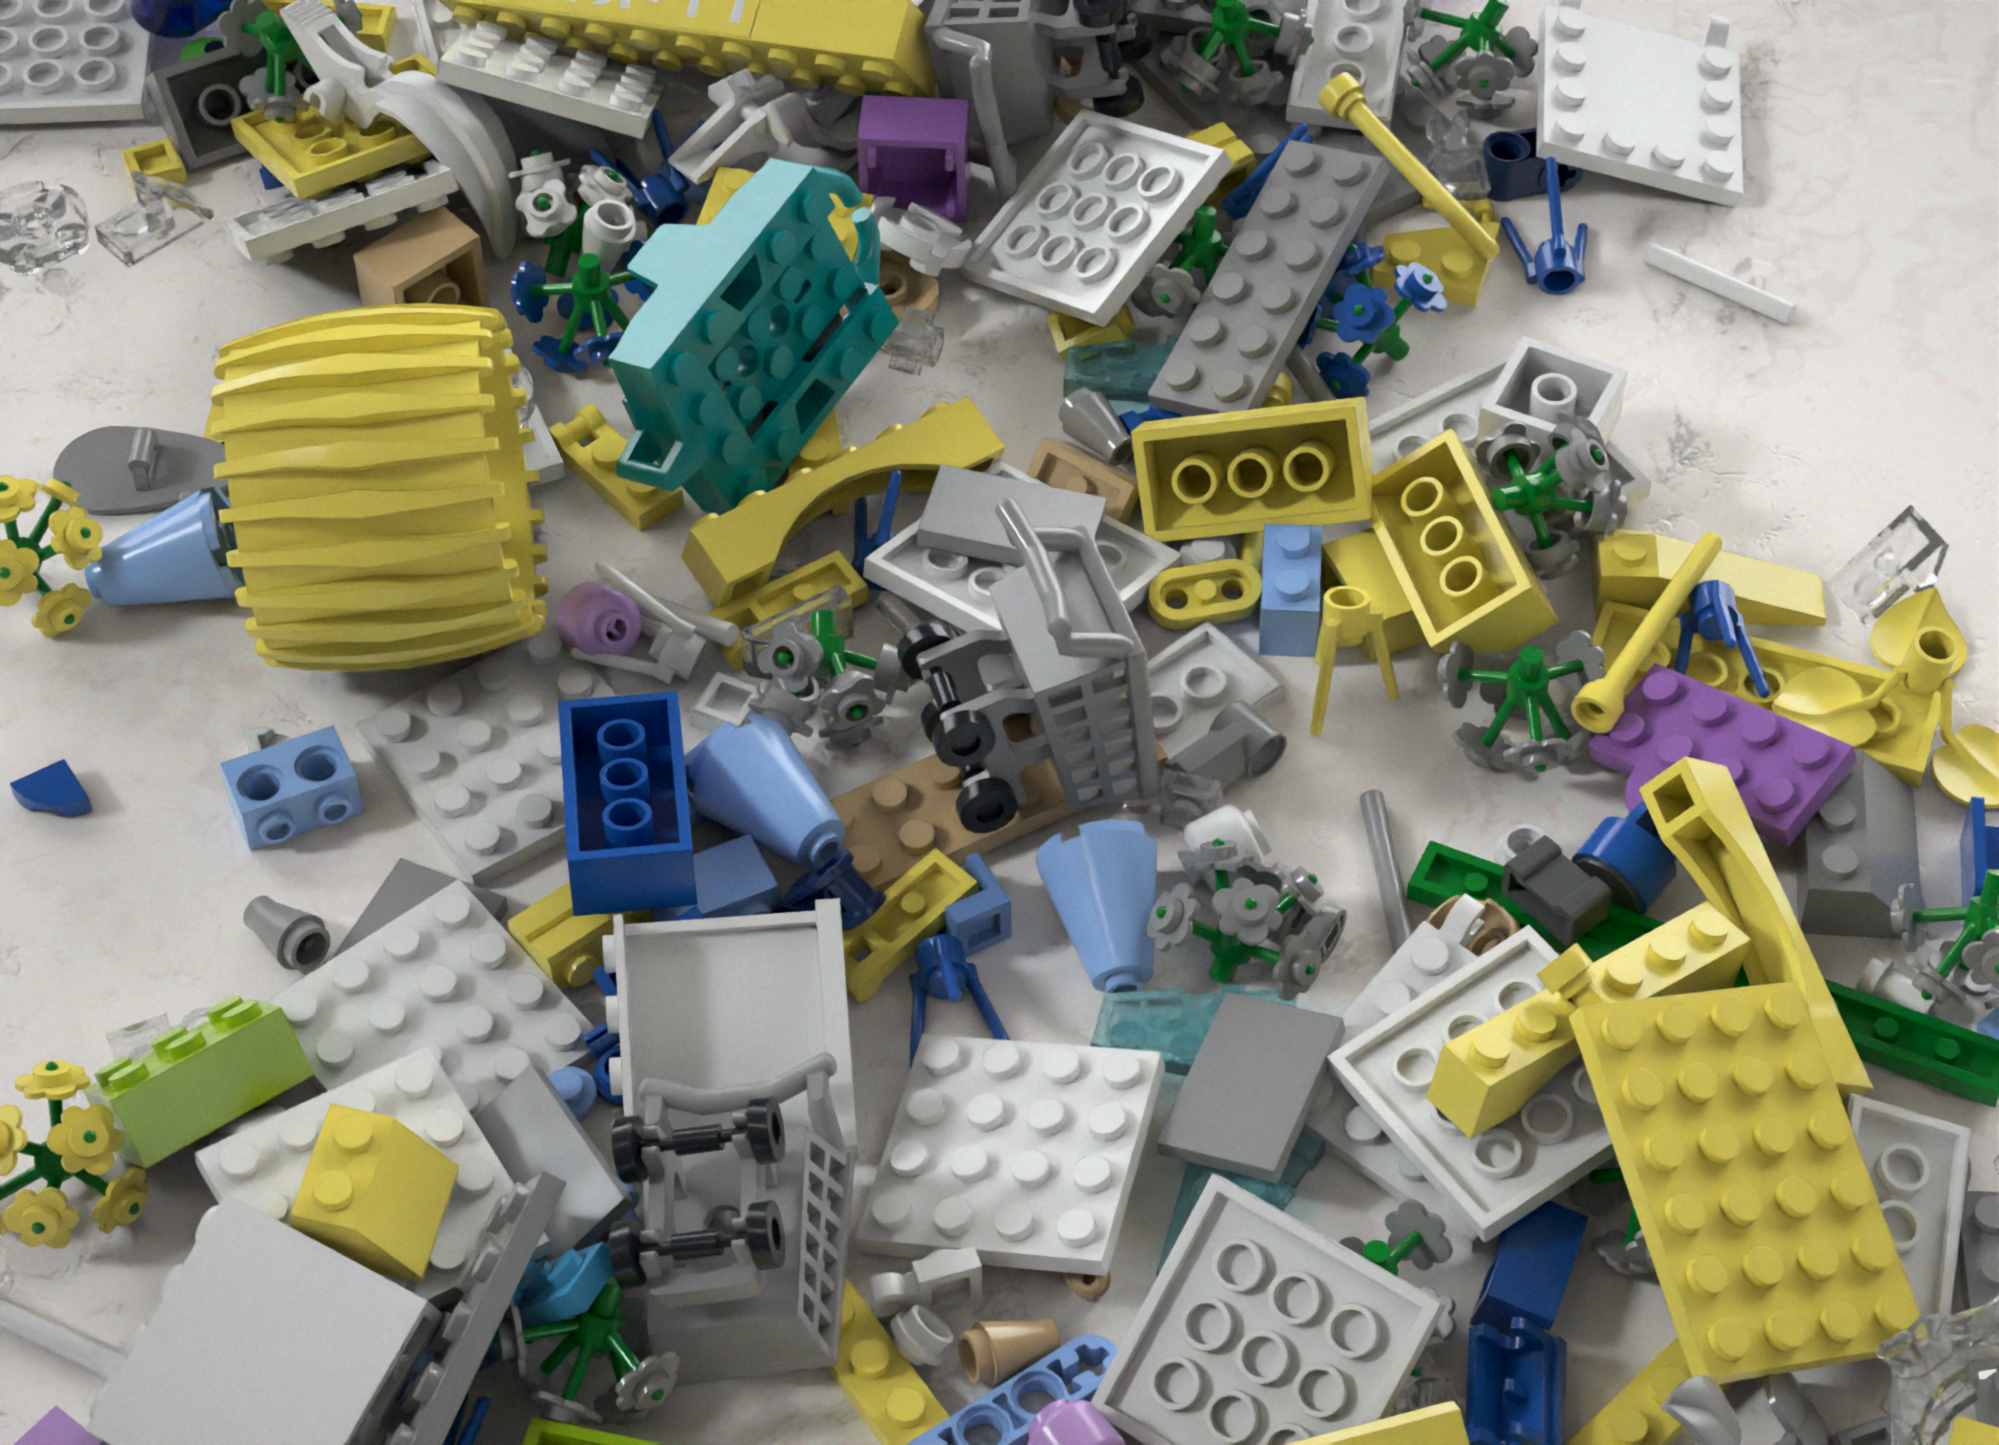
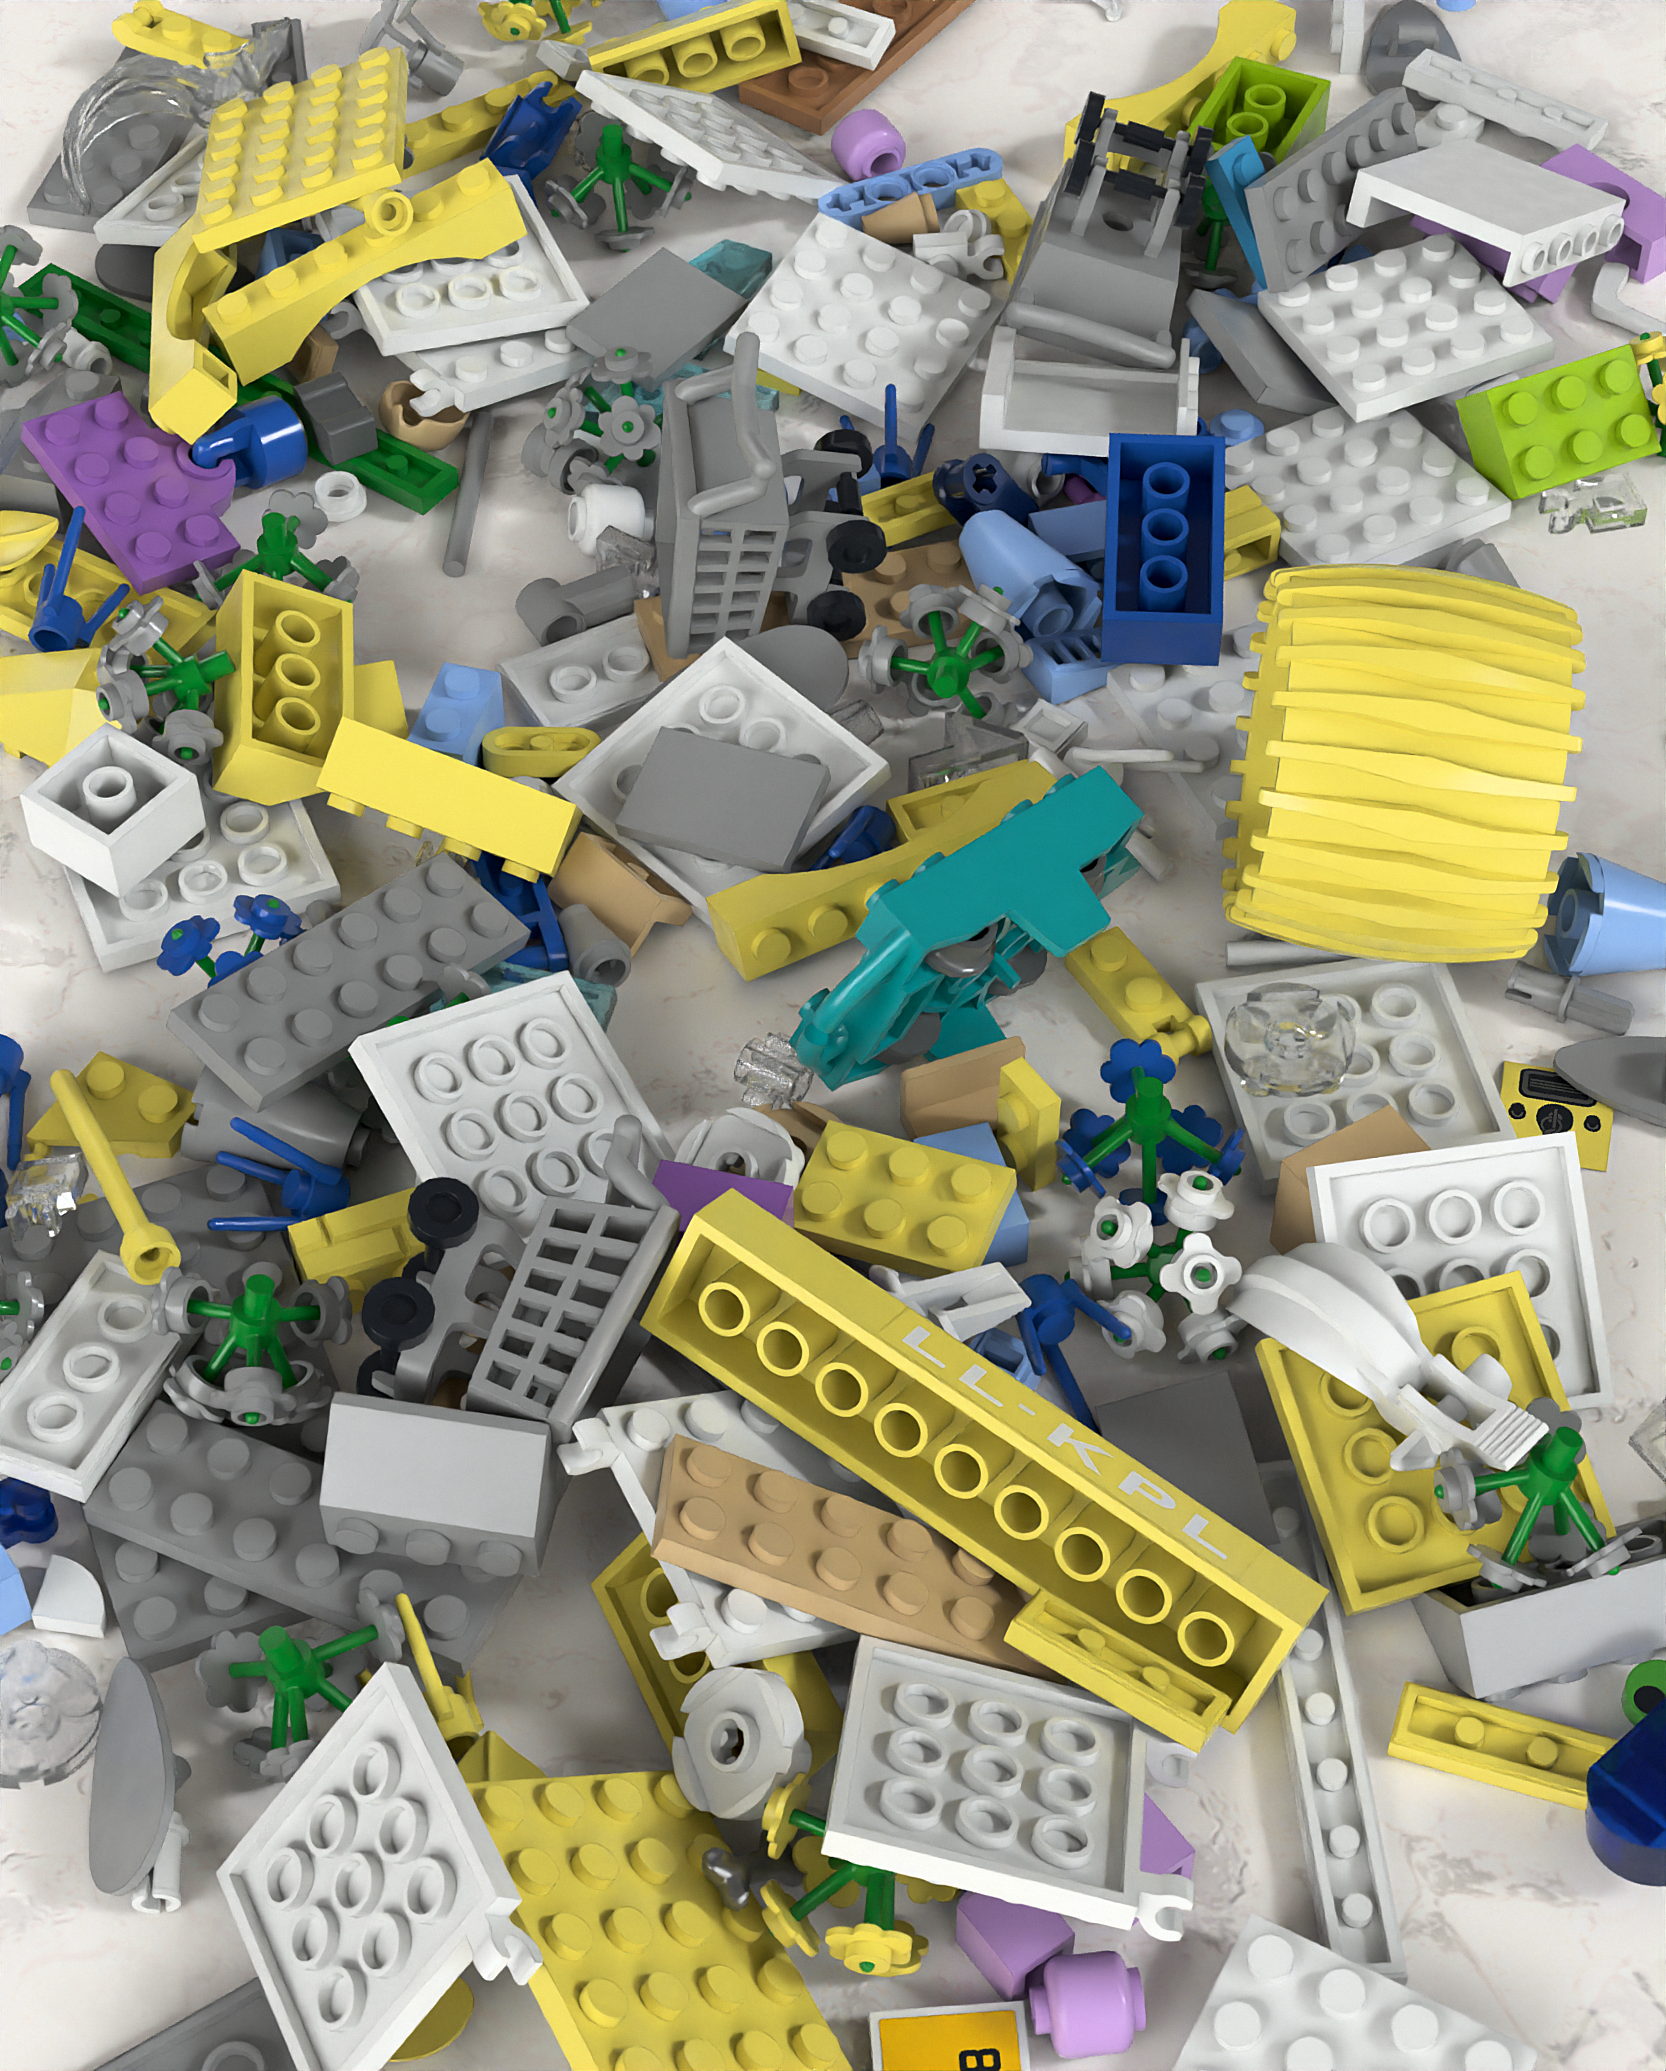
camera: 170 degrees left, 0 degrees up
(374, 1193) = (1408, 272): light yellow slope -> none
(551, 79) = (1194, 1382): white plate -> none
(598, 619) = (1175, 792): lavender head -> none
(607, 231) = (1122, 1173): white cone -> none
(1344, 623) = (426, 629): light yellow plant -> none
(1601, 701) = (217, 538): light yellow piece -> none

